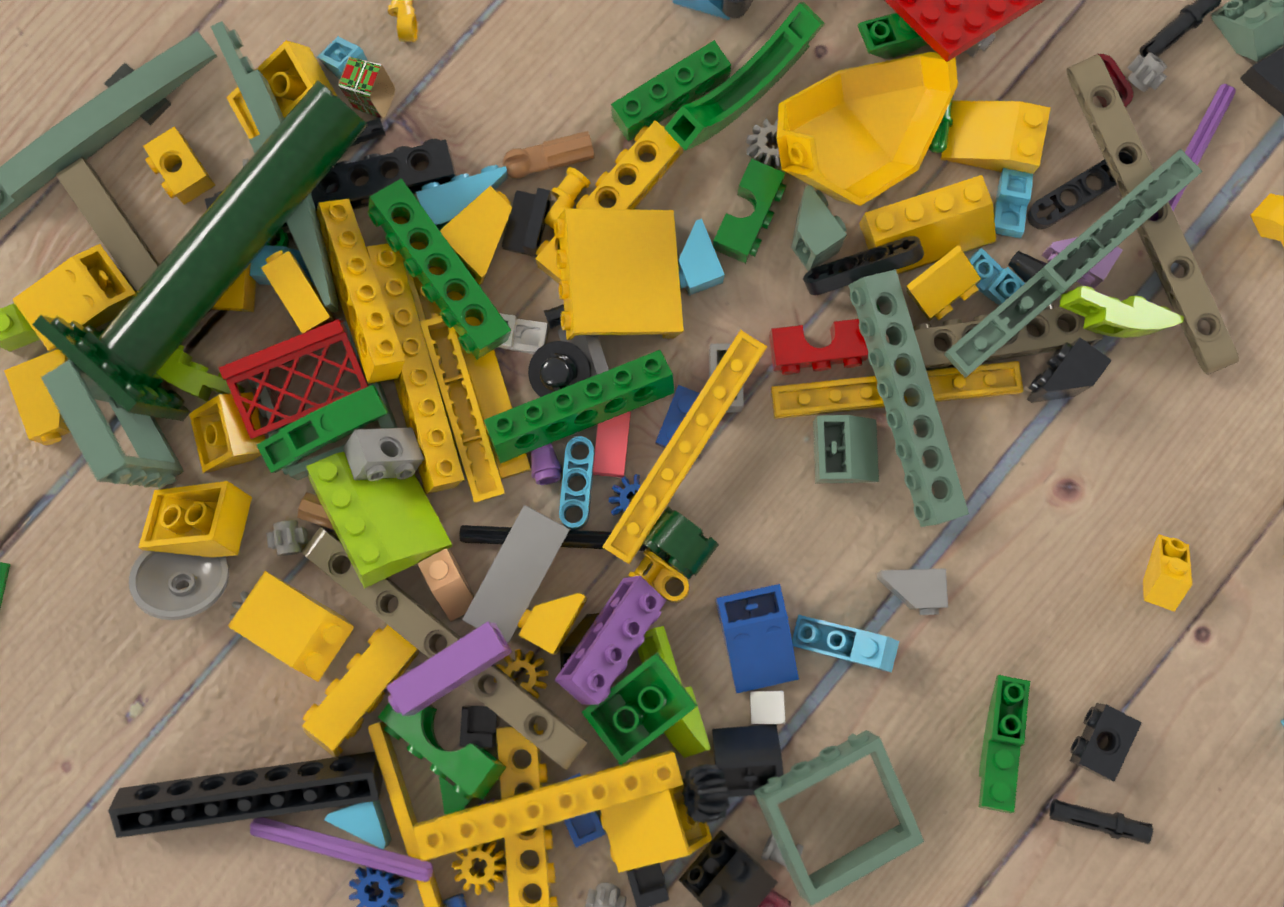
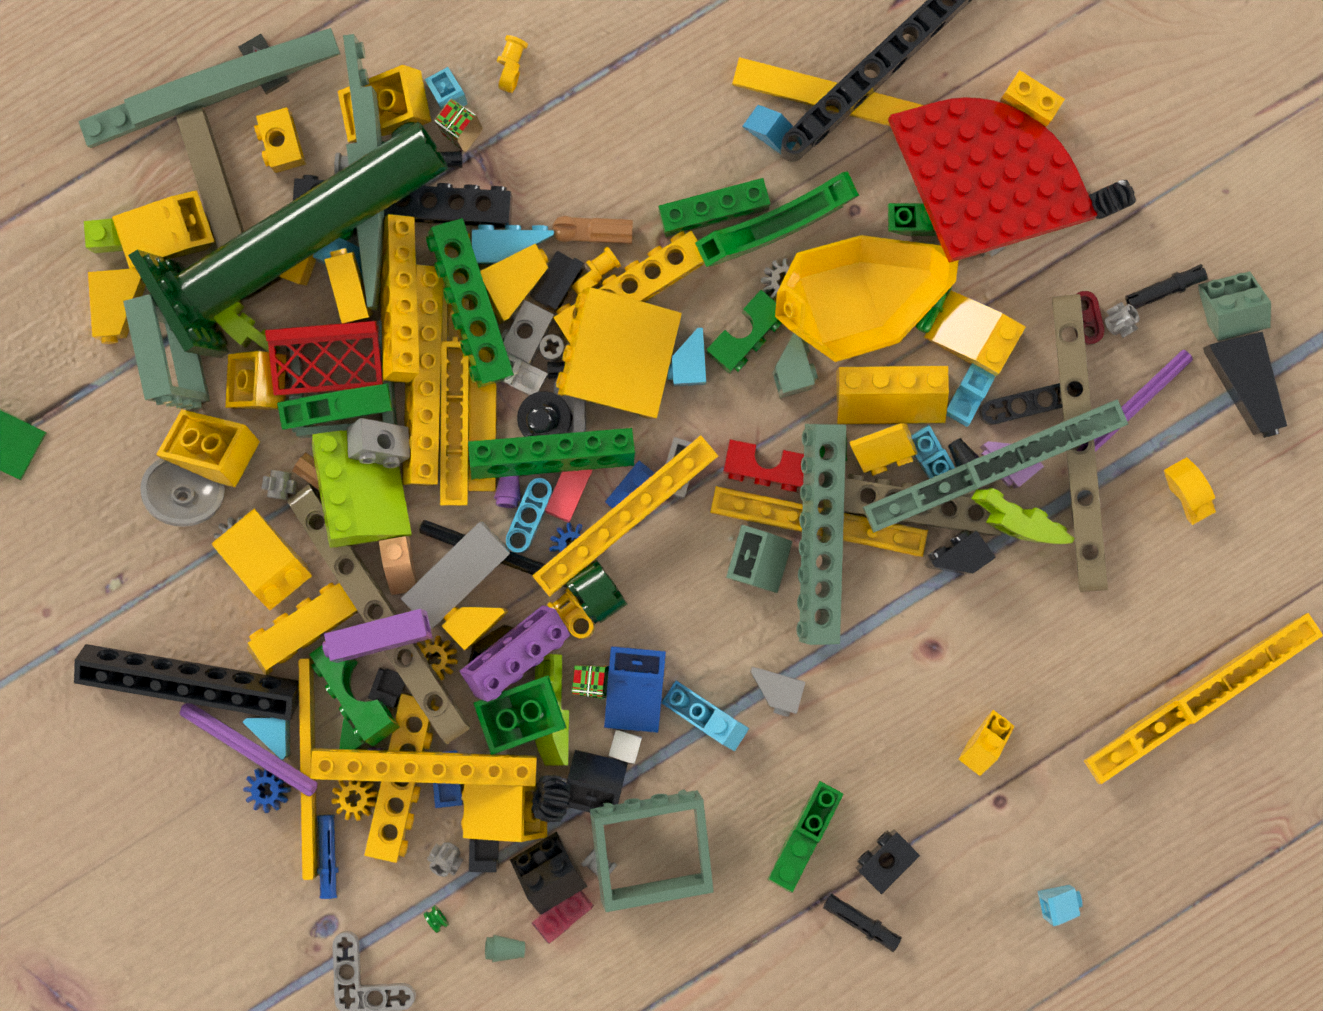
camera: 15 degrees right, 5 degrees up
(513, 267) = (531, 316): none -> light grey brick
(545, 284) = (544, 346): none -> light grey bush
(705, 644) = (590, 681): none -> piece
(863, 264) = (852, 411): black beam -> none

